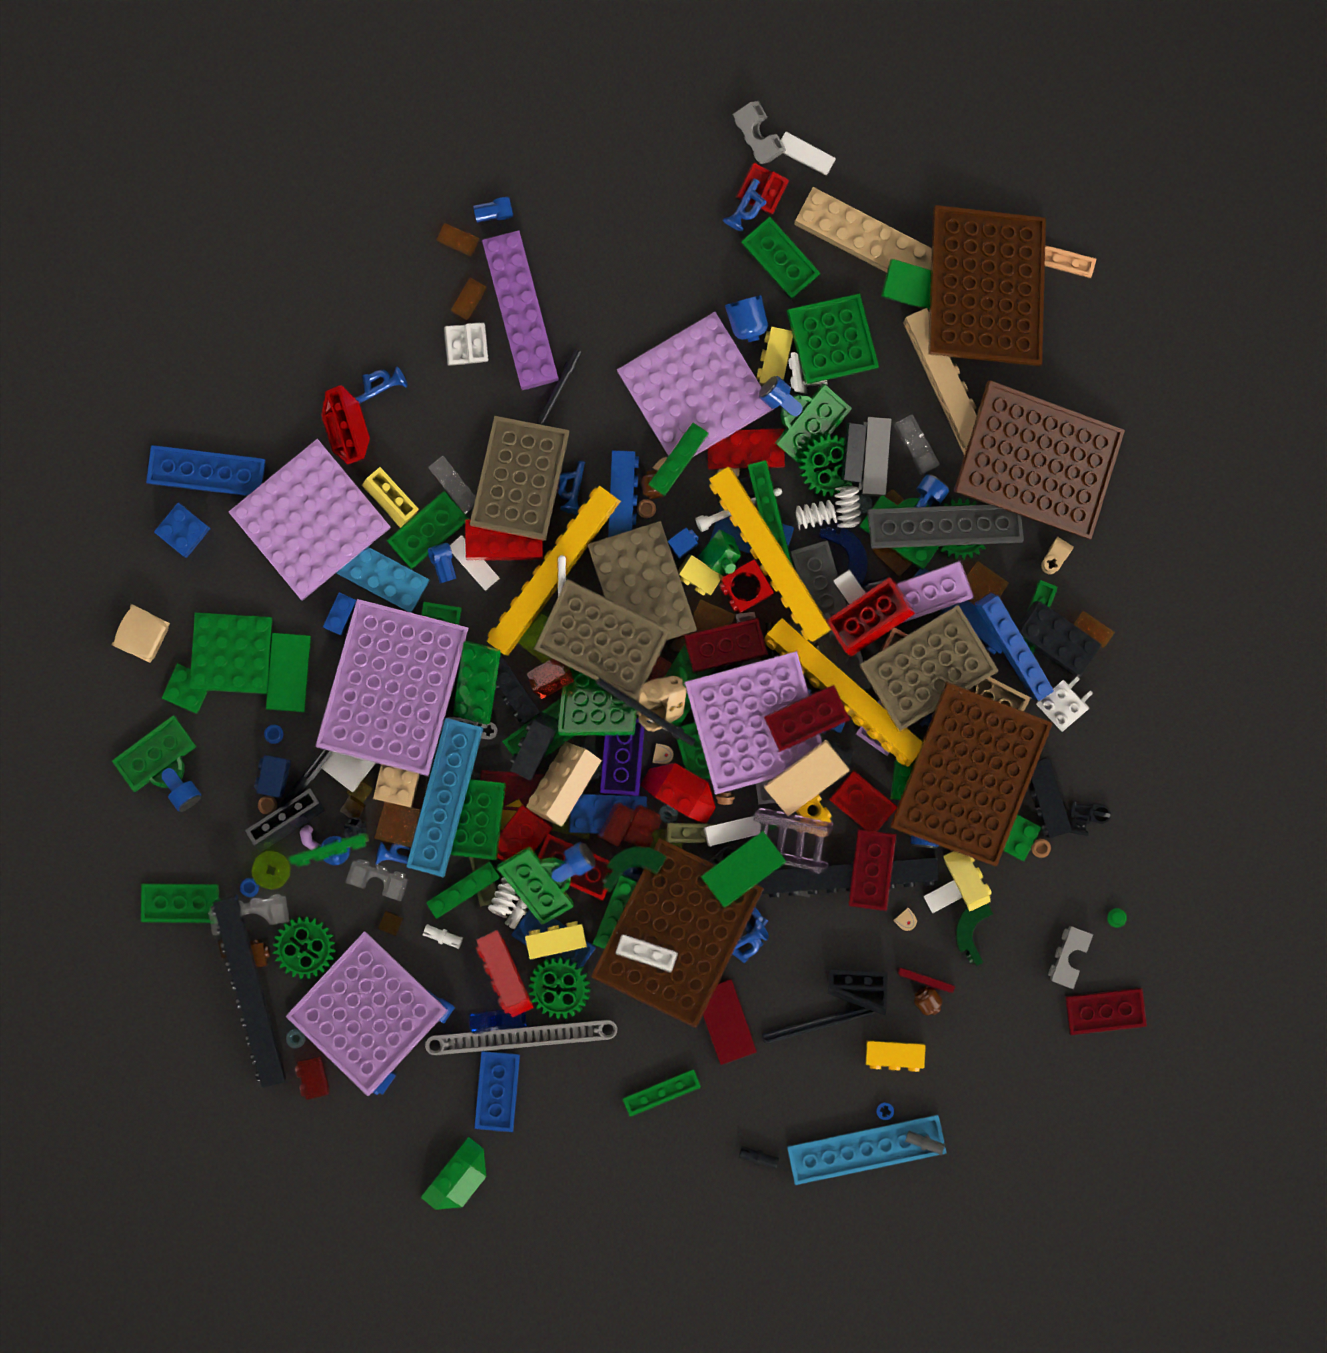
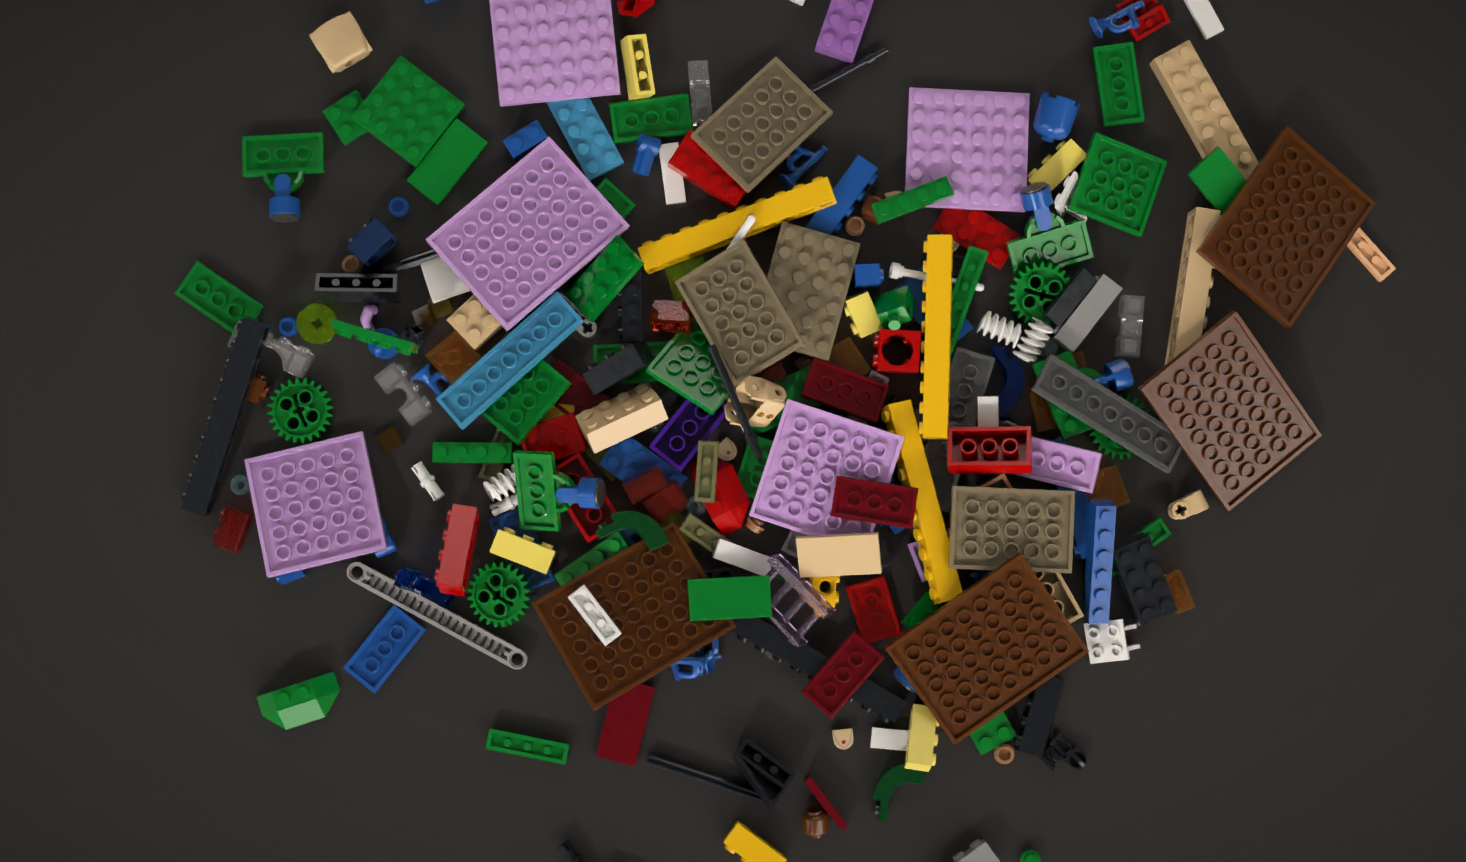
camera: 30 degrees right, 0 degrees up
(659, 781) = (706, 471): none -> olive tile

